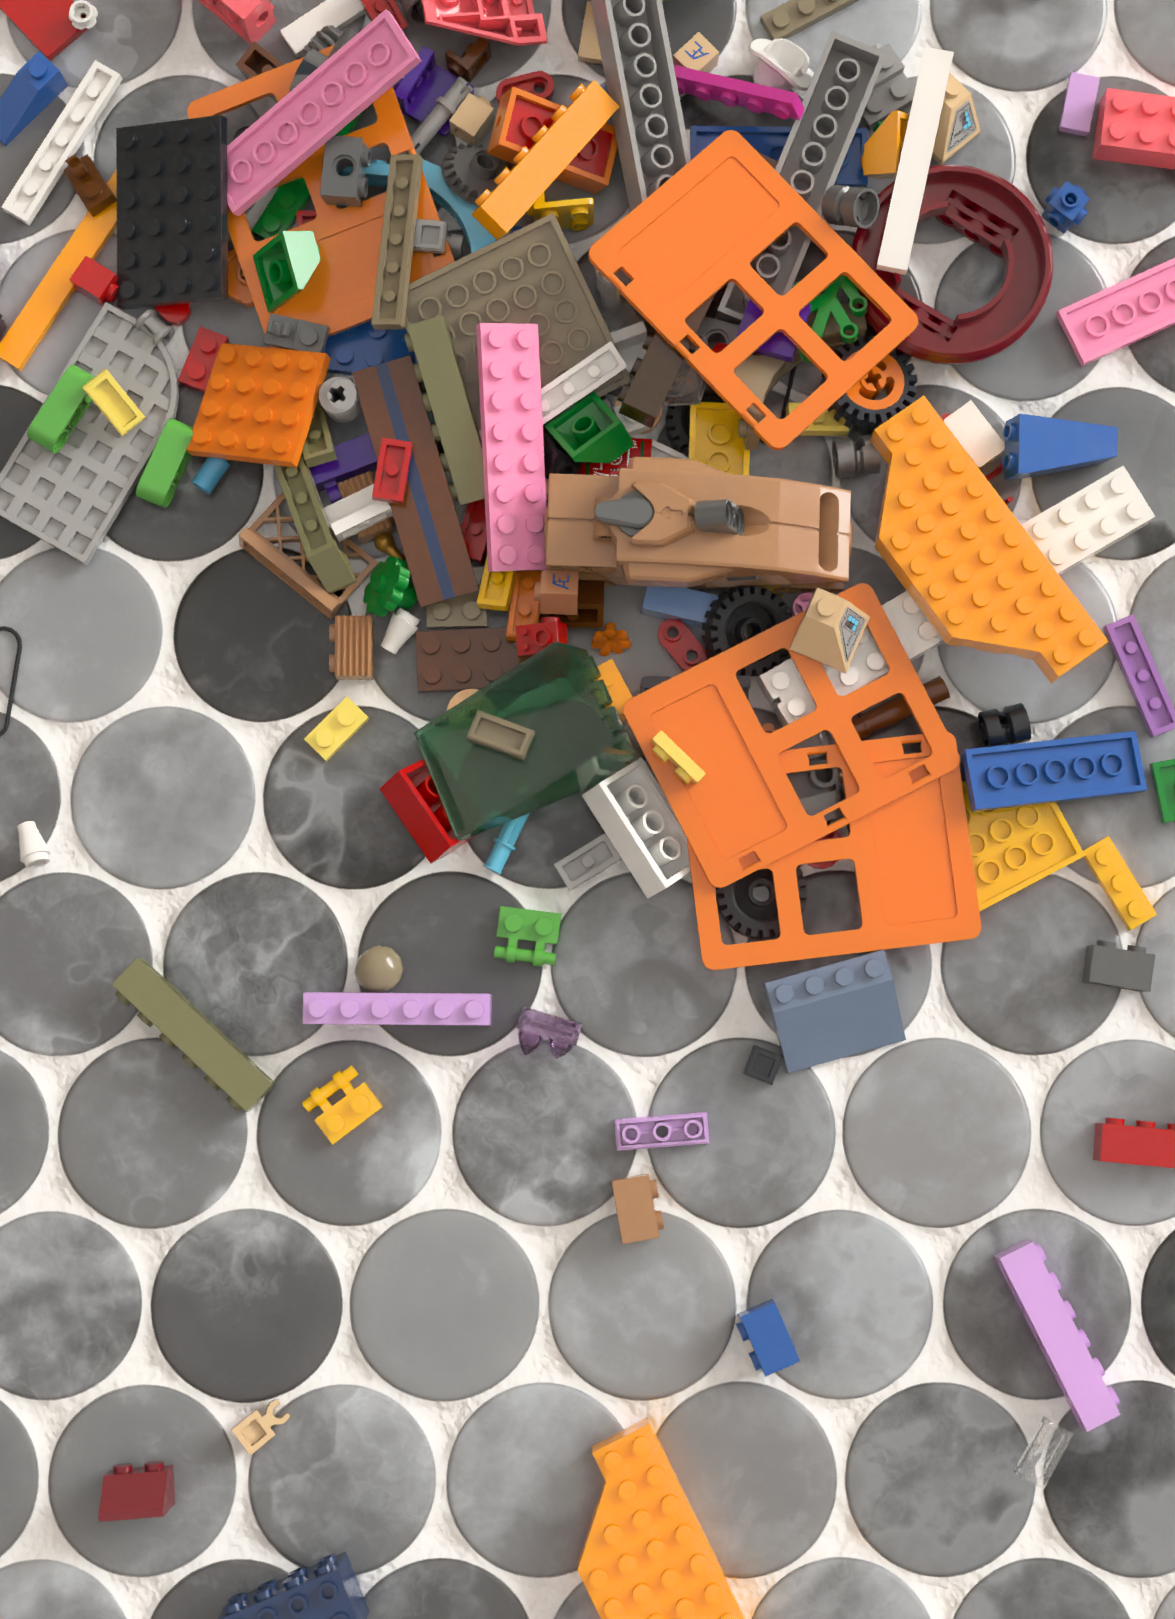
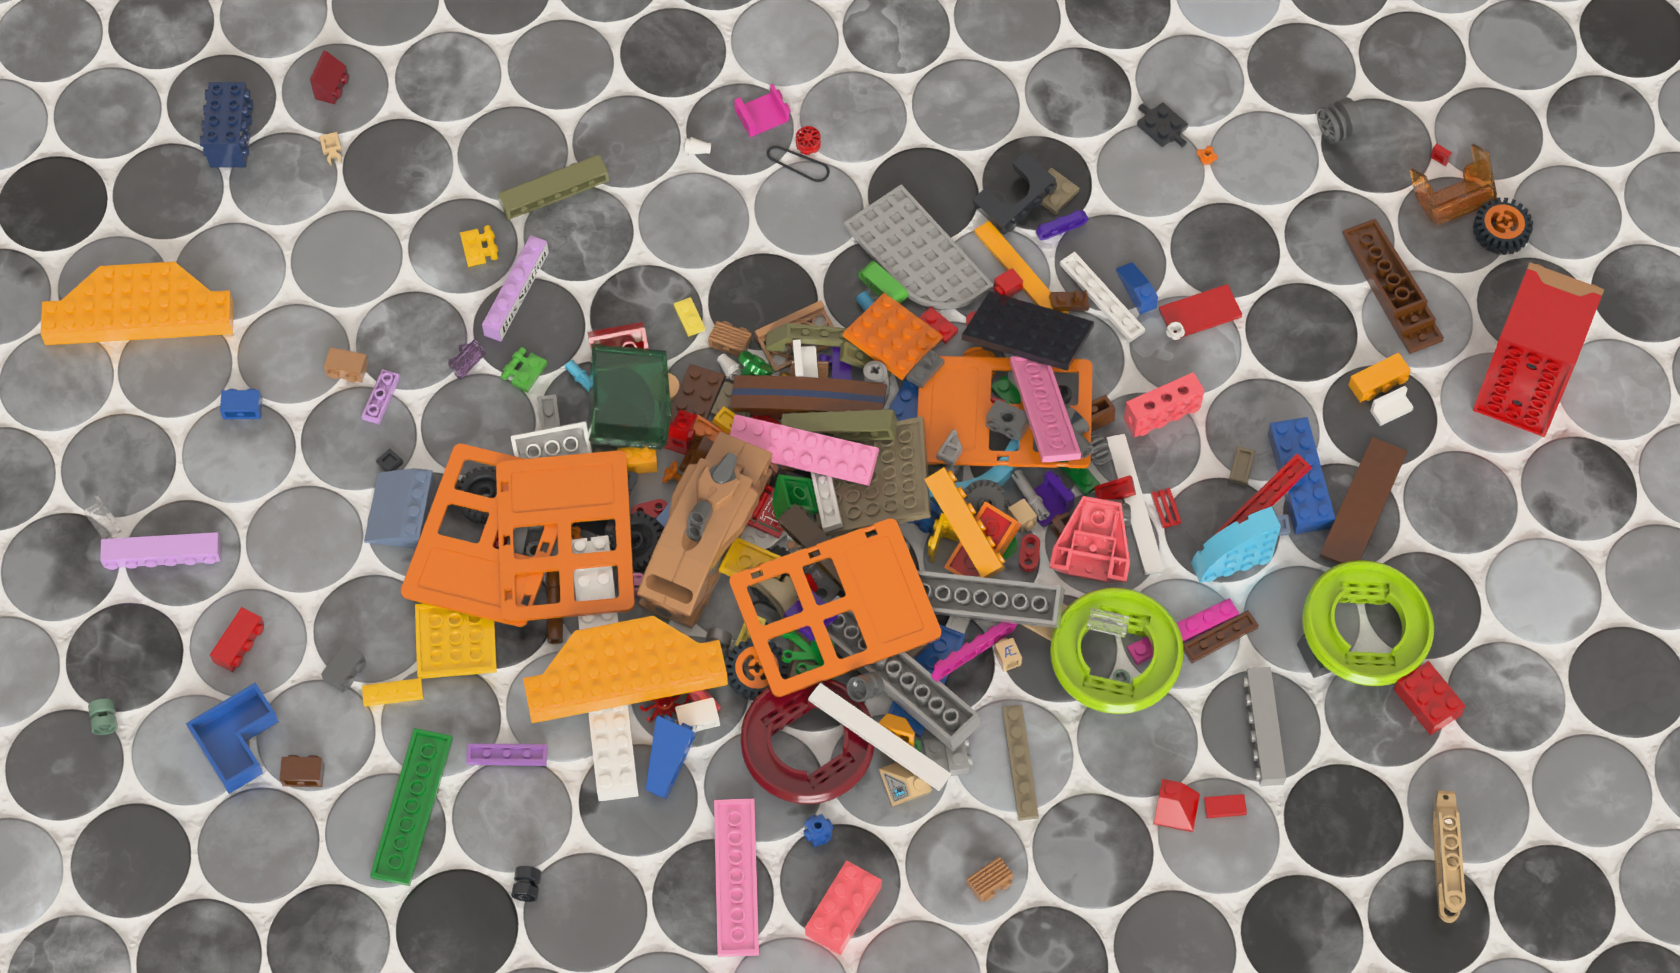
camera: 115 degrees right, 20 degrees down
(61, 410) = (935, 239): bright green beam -> none
(113, 402) = (926, 262): light yellow tile -> none
(161, 331) = (967, 305): light grey bush -> none
(286, 266) = (965, 375): green slope -> none
(378, 969) = (543, 289): dark tan hair -> none
(392, 471) = (815, 379): red plate -> none
(397, 242) = (950, 428): dark tan plate -> none
(500, 735) = (640, 389): dark tan tile -> none
(558, 592) = (703, 440): nougat brick -> none
(686, 767) = (579, 464): light yellow plate -> none
(781, 64) = (983, 694): white hat -> none
(830, 630) = (613, 573): tan slope -> none
(1013, 720) = (514, 663): black wheel -> none
(1053, 771) = (474, 675): blue plate -> none
(1079, 104) = (888, 873): lavender tile -> none

